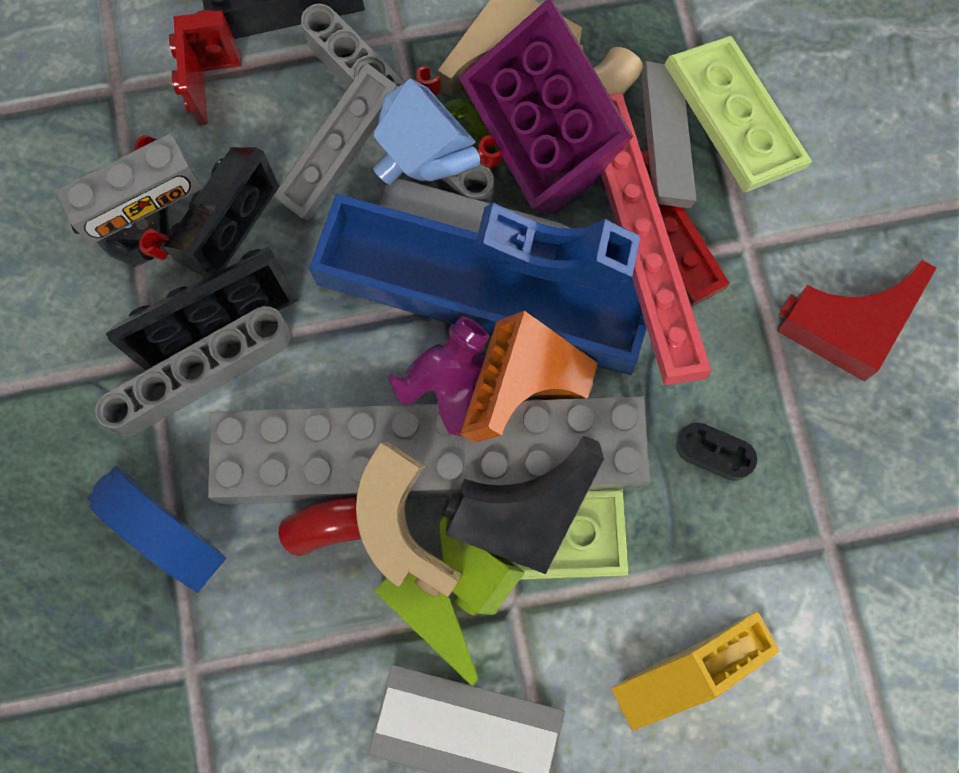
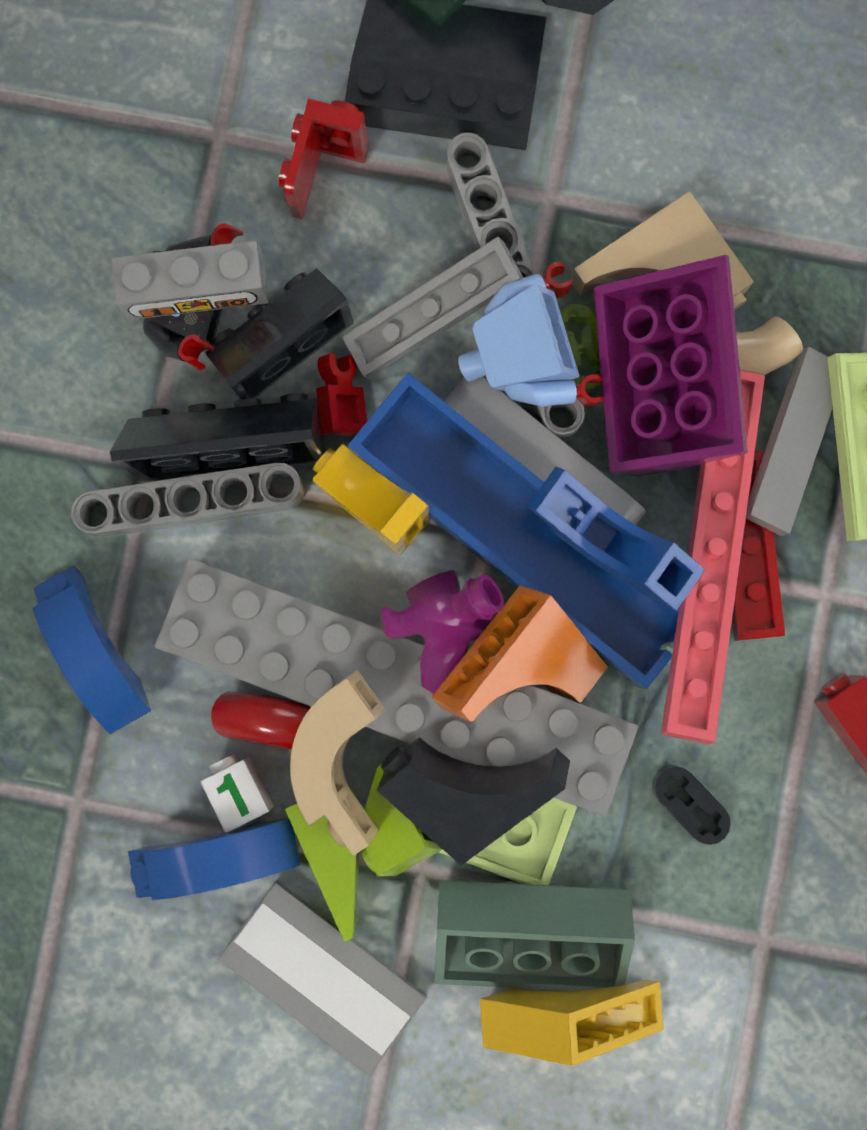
camera: 25 degrees right, 10 degrees up
(290, 246) = (339, 402): none -> red plate
(327, 598) = (236, 792): none -> white brick
(327, 663) = (214, 860): none -> blue arch
(352, 309) = (371, 498): none -> yellow arch
(632, 616) = (533, 935): none -> sand green slope

